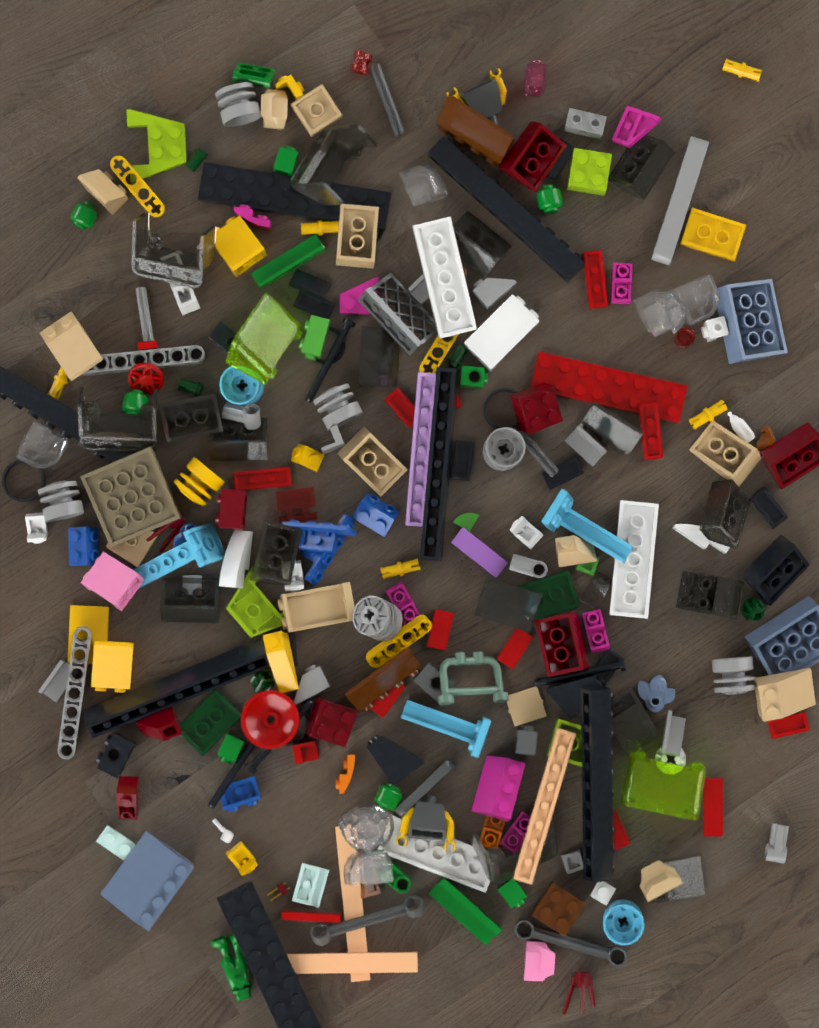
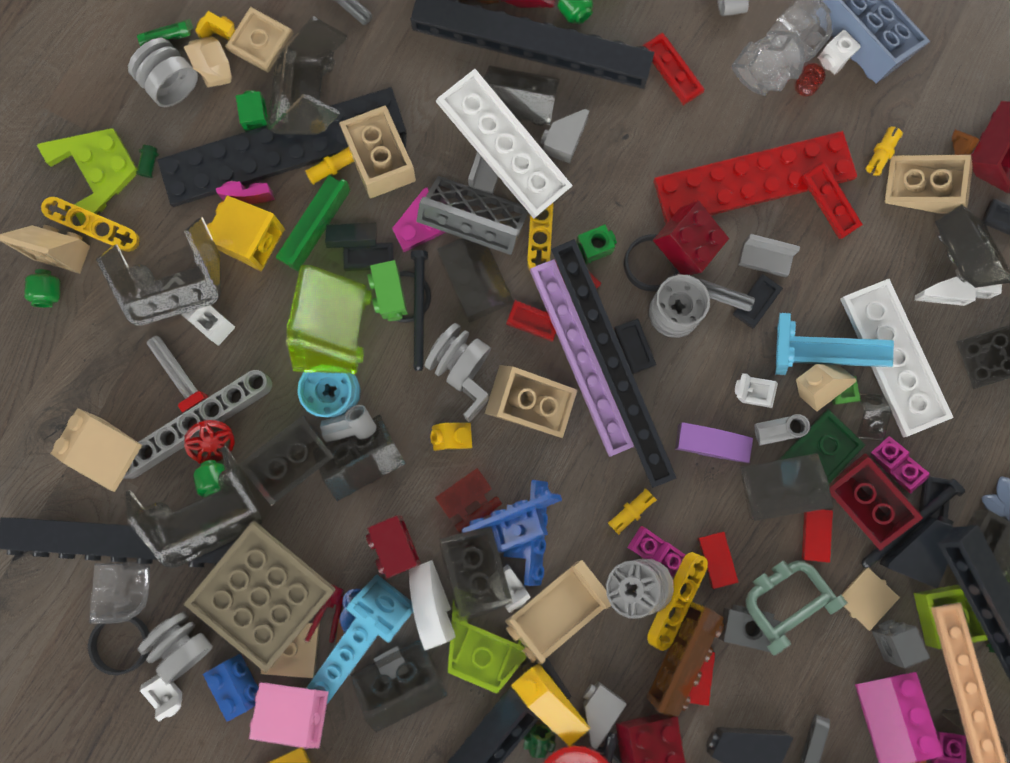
camera: 30 degrees left, 5 degrees down
(58, 383) = (107, 504): yellow pin -> none
(190, 387) = (269, 425): dark green pin -> none
(198, 482) = (335, 534): yellow wheel -> none
(221, 335) = (274, 344): black torso -> none
(262, 479) = (411, 490): red tile -> none
(375, 514) = (568, 462): blue bracket -> none
(423, 184) = (423, 58): clear brick -> none
(449, 725) = (838, 665): medium azure bracket -> none
(457, 356) = (565, 228): dark green pin -> none
(466, 520) = (678, 413): bright green tile -> none
(502, 332) = (601, 177): white panel -> none
(611, 429) = (789, 218): clear smoke slope -> none
(621, 283) = (704, 57): dark pink slope -> none
(741, 428) = (927, 146): white piece -> none

